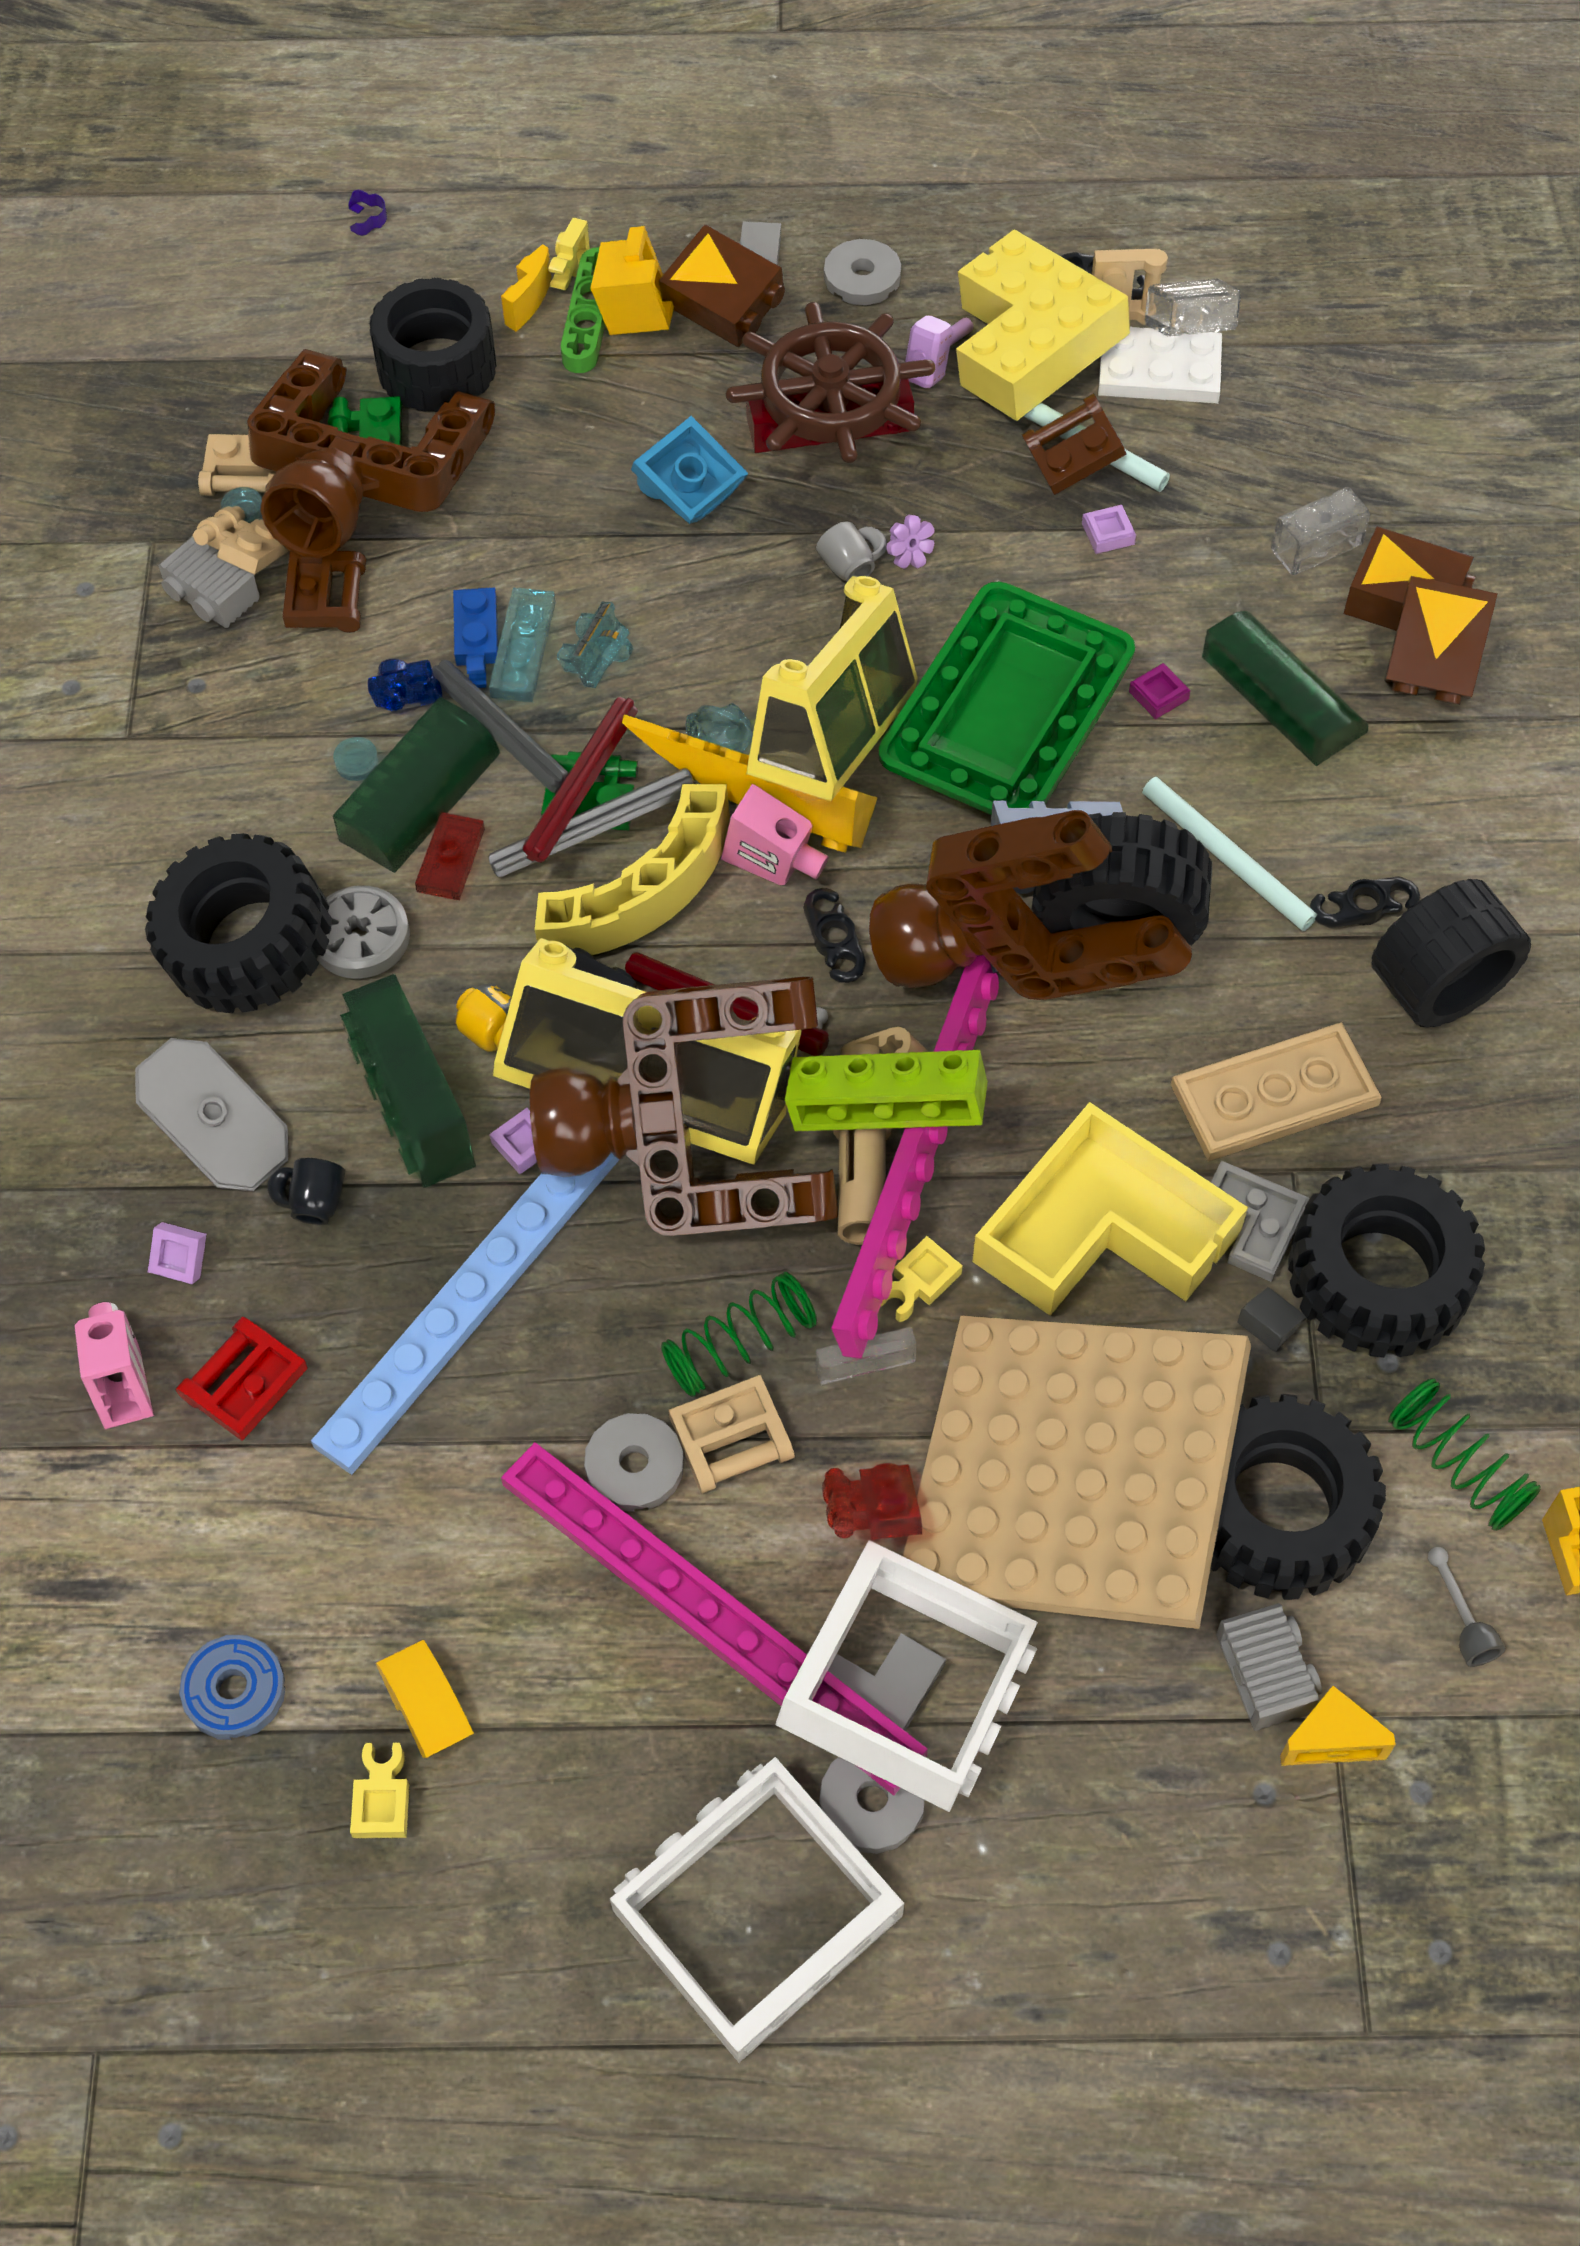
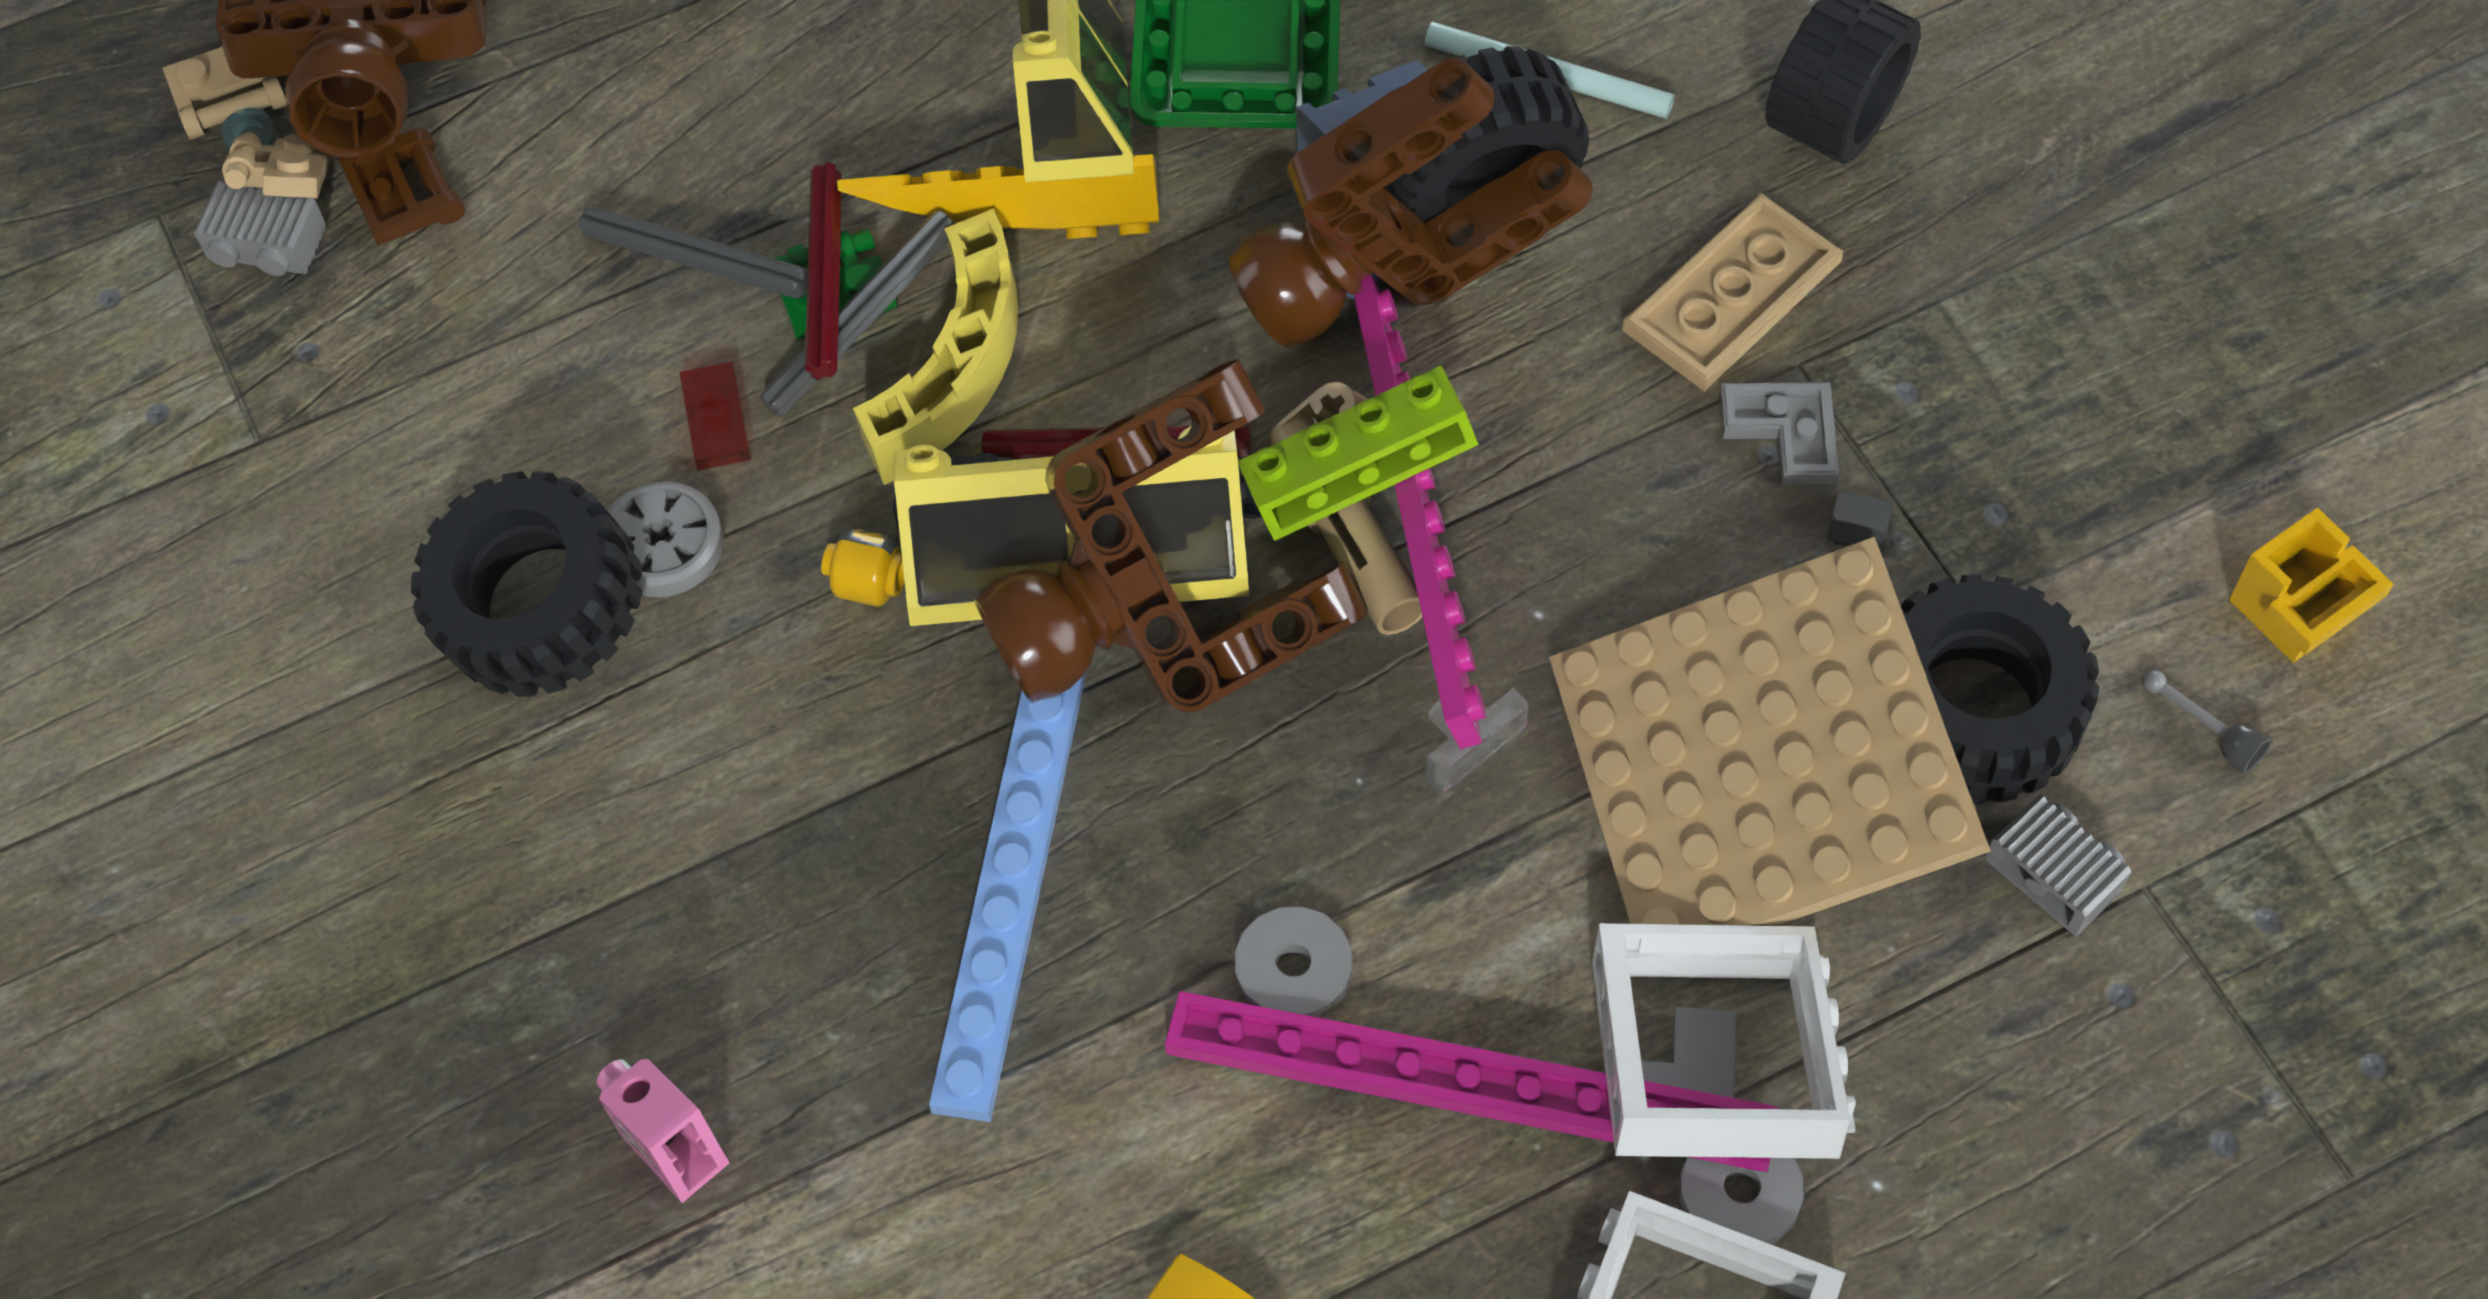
camera: 25 degrees left, 0 degrees up
(177, 1253) = (658, 973): lavender plate -> none
(211, 1114) = (611, 806): light grey shield -> none
(251, 1387) = (828, 1080): red plate -> none
(312, 1191) = (774, 835): black piece -> none
(355, 758) = (545, 355): clear light blue tile -> none
(404, 684) = (551, 254): clear blue plate -> none
(406, 1081) = (820, 671): clear green brick -> none
(415, 784) = (634, 355): clear green brick -> none
(475, 631) = (602, 162): blue plate -> none
(516, 1141) = (977, 682): lavender plate -> none
(522, 645) = (666, 156): clear light blue plate -> none
(599, 644) = (757, 121): clear light blue hips -> none
(692, 1382) = (1303, 836): green piece -> none
(721, 726) = (942, 151): clear light blue piece -> none
(727, 1418) = (1367, 873): tan plate -> none
(771, 839) = (1069, 250): bright pink torso -> none
(846, 949) = (1164, 315): black piece -> none
(879, 1501) = (1574, 882): clear red plate -> none
(922, 1274) = (1491, 631): light yellow plate -> none
(1102, 1192) = (1638, 461): light yellow piece -> none
(1338, 1733) = (2162, 897): yellow slope -> none
(1378, 889) = (1722, 46): black piece -> none
(1395, 1206) = (1958, 352): black tyre -> none
(1511, 1504) = (2205, 586): green piece -> none

